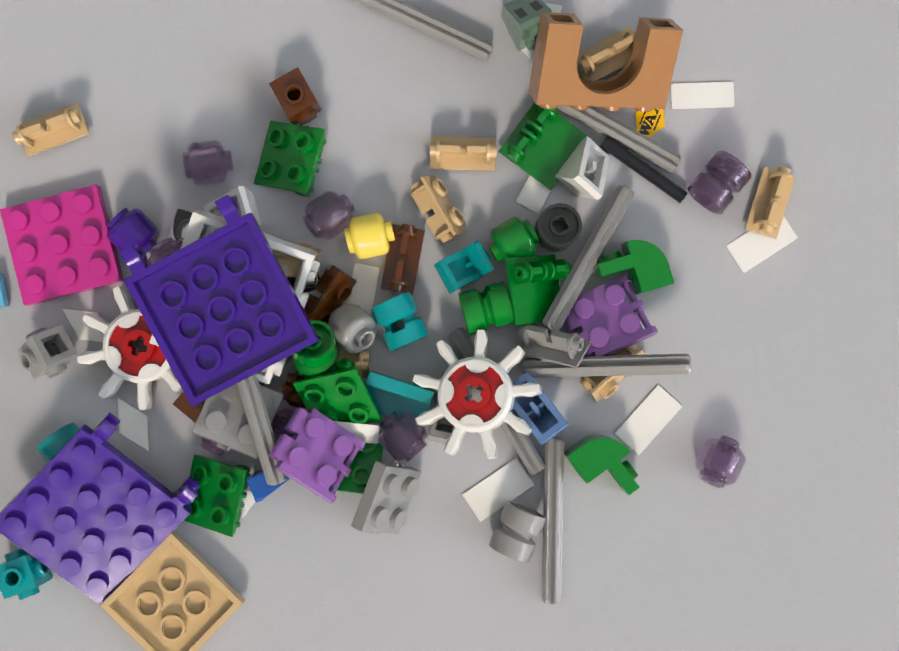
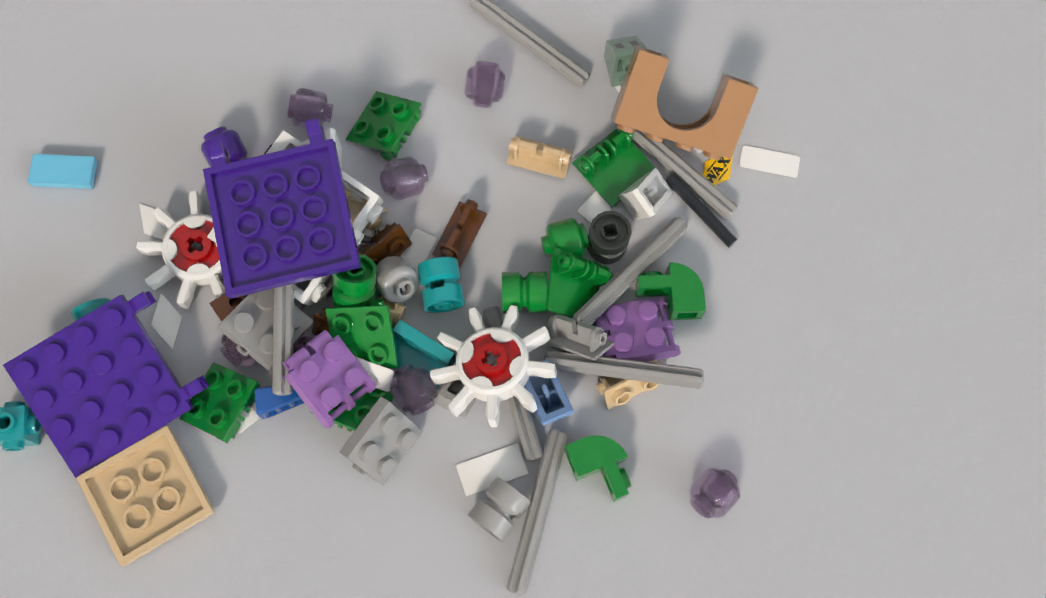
camera: 15 degrees right, 15 degrees down
(47, 352) = (112, 231): light grey brick -> none
(51, 130) = (183, 52): tan hinge -> none
(61, 245) = (157, 149): dark pink plate -> none
(295, 97) = (404, 74): reddish brown brick -> none
(369, 235) = (434, 203): light yellow head -> none
(384, 86) = (484, 84): none -> clear purple head
(430, 195) = (501, 186): tan hinge -> none
(464, 267) = (514, 252): teal bracket -> none
(606, 55) = (687, 107): tan hinge -> none
(648, 419) = (654, 439): white sticker -> none
(722, 178) = (771, 231): clear purple wheel -> none
(754, 248) = (798, 301): white sticker -> none
(770, 201) = (813, 265): tan hinge -> none

